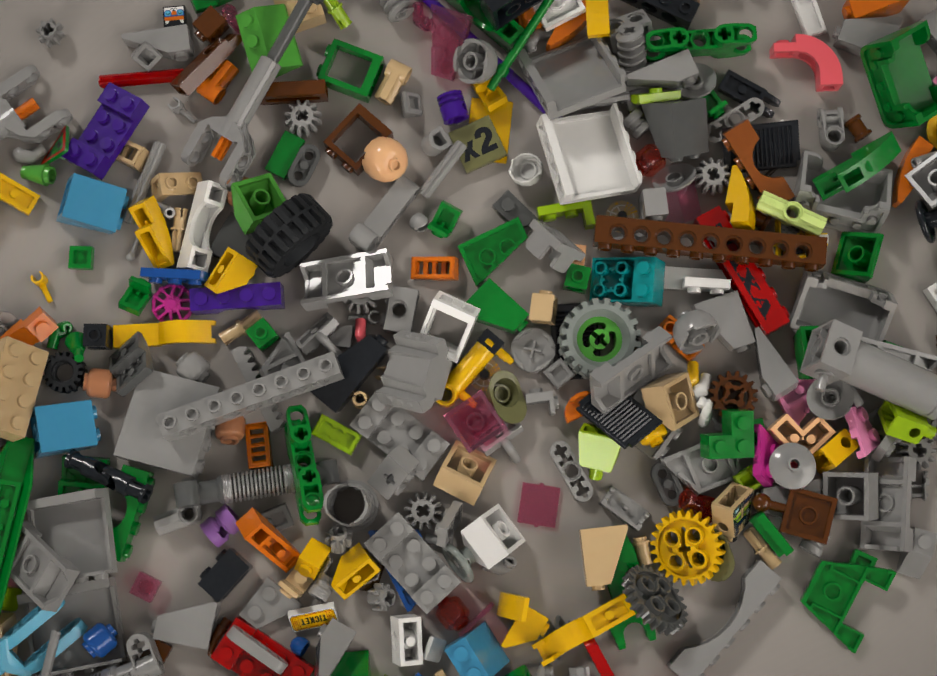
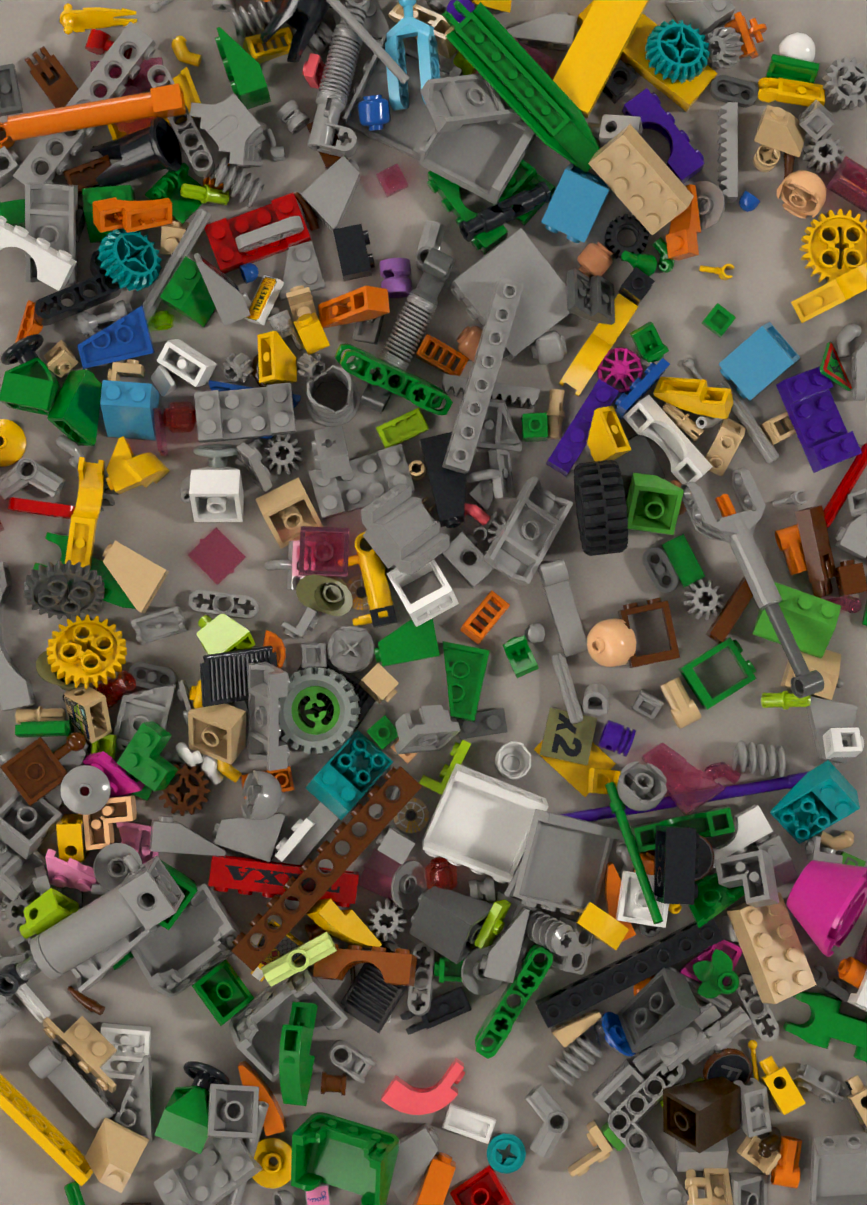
camera: 120 degrees right, 5 degrees up
(40, 174) = (820, 337): bright green cone -> none
(642, 550) = (115, 614): tan pin -> none

